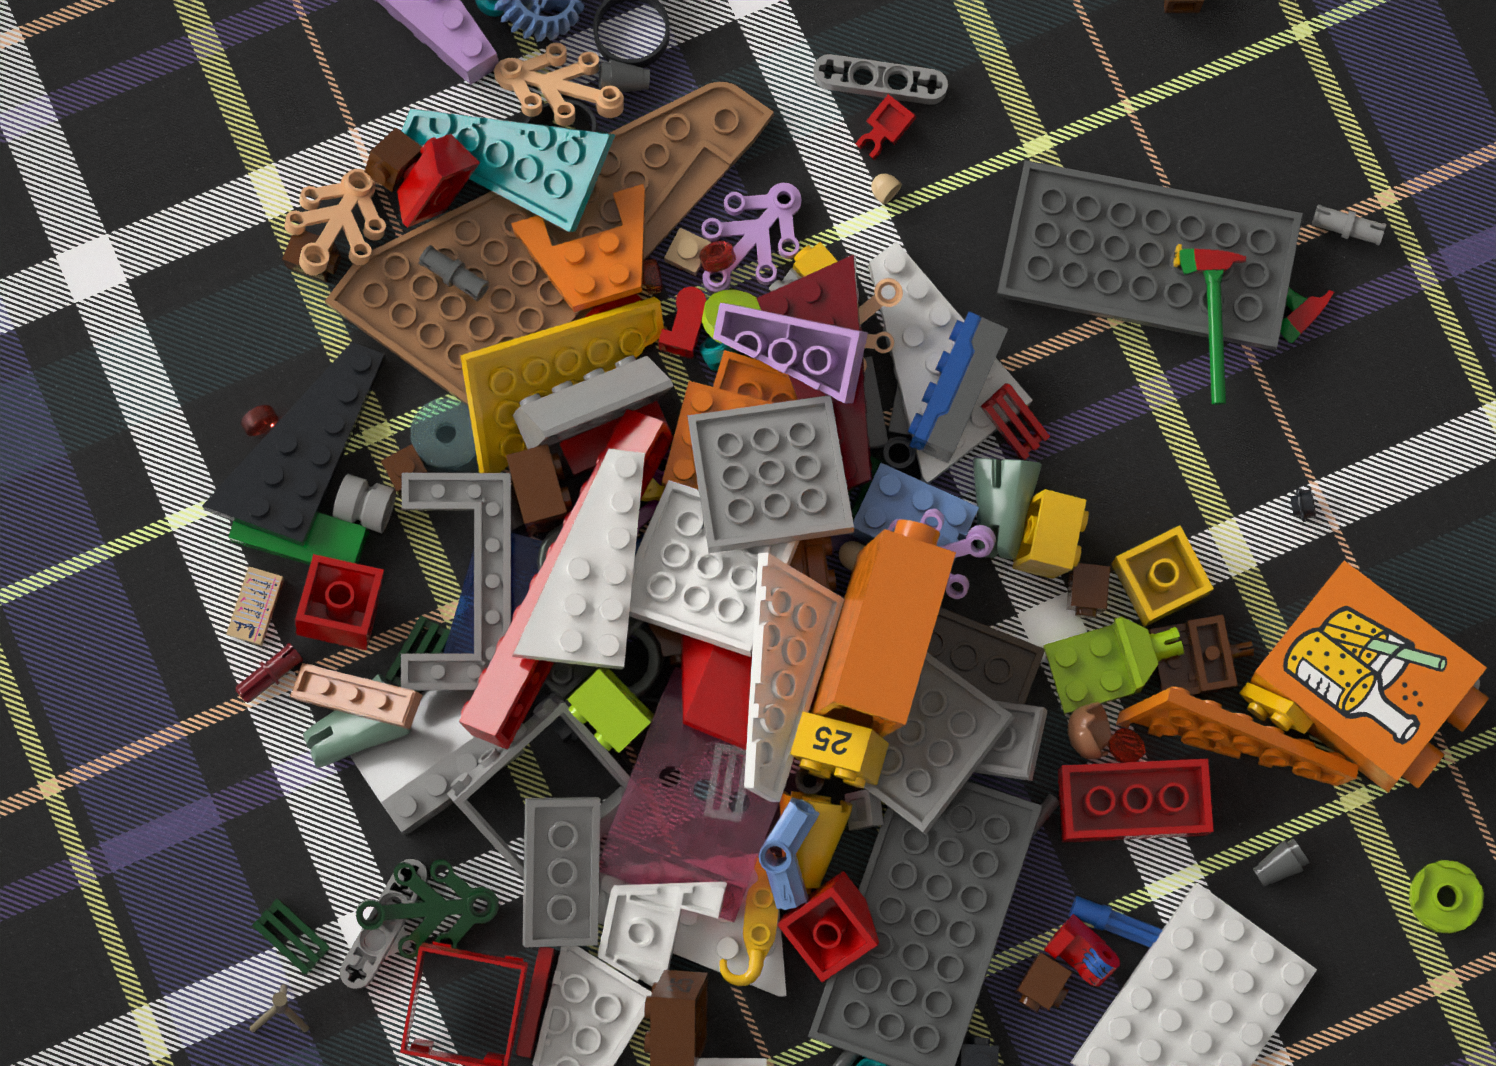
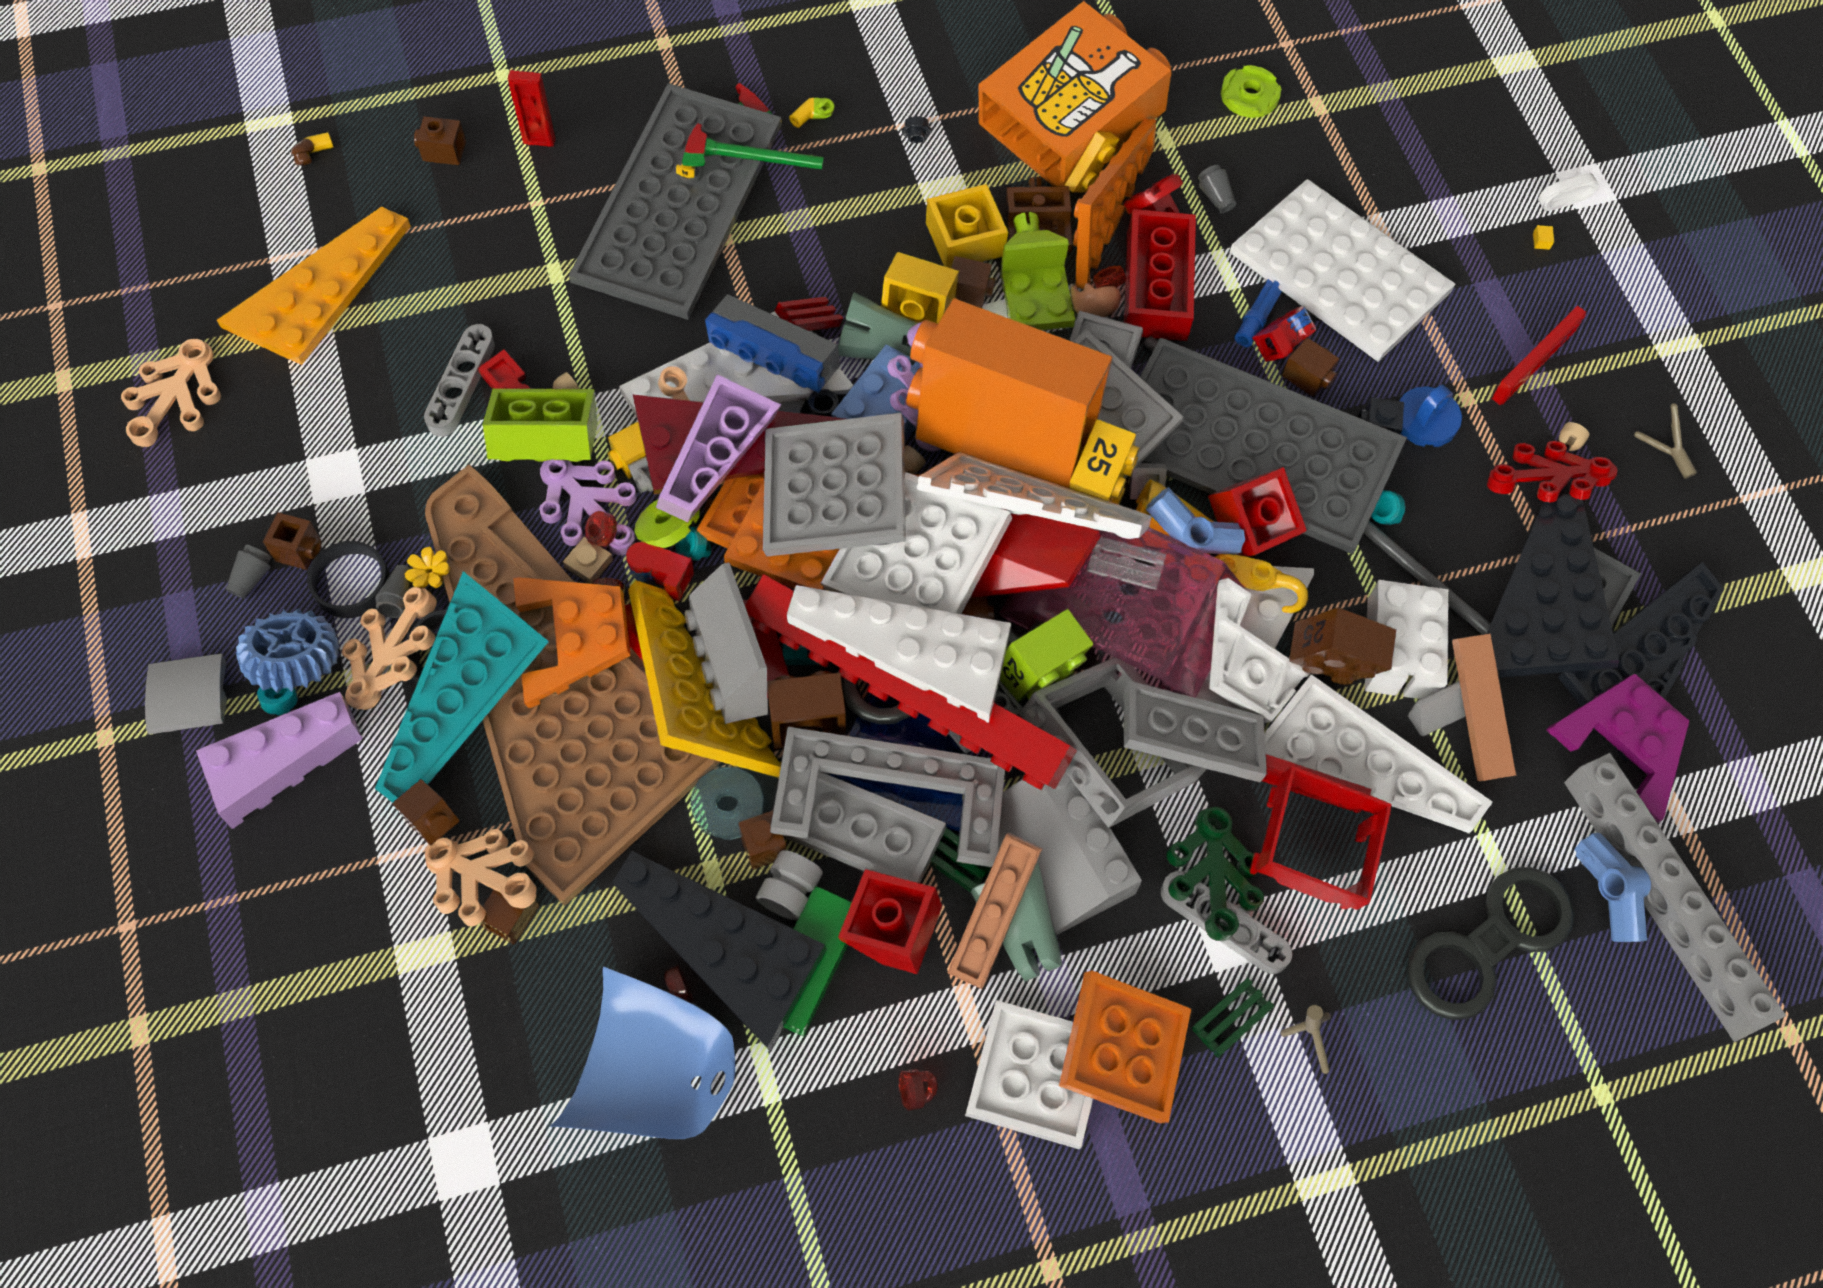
camera: 85 degrees left, 15 degrees down
(179, 403) = (645, 1063): none -> medium blue piece
(191, 642) = (912, 1088): none -> clear red tile
(215, 756) = (1022, 1075): none -> white plate
(243, 832) = (1125, 1047): none -> orange plate
(255, 606) = (879, 1016): tan tile -> none
(268, 673) = (955, 1008): dark red axle -> none
(427, 573) = (870, 831): none -> light grey plate
(434, 179) = (458, 767): red slope -> none
(453, 273) = (563, 763): dark grey pin -> none
(645, 100) = (428, 568): none -> yellow plant
(823, 172) = (540, 424): none -> lime brick
(1222, 73) = (531, 108): none -> red tile
(1244, 786) = (1156, 197): none -> red tile
(1313, 381) = (812, 109): none -> arm
(1348, 224) = (683, 63): light grey pin -> none

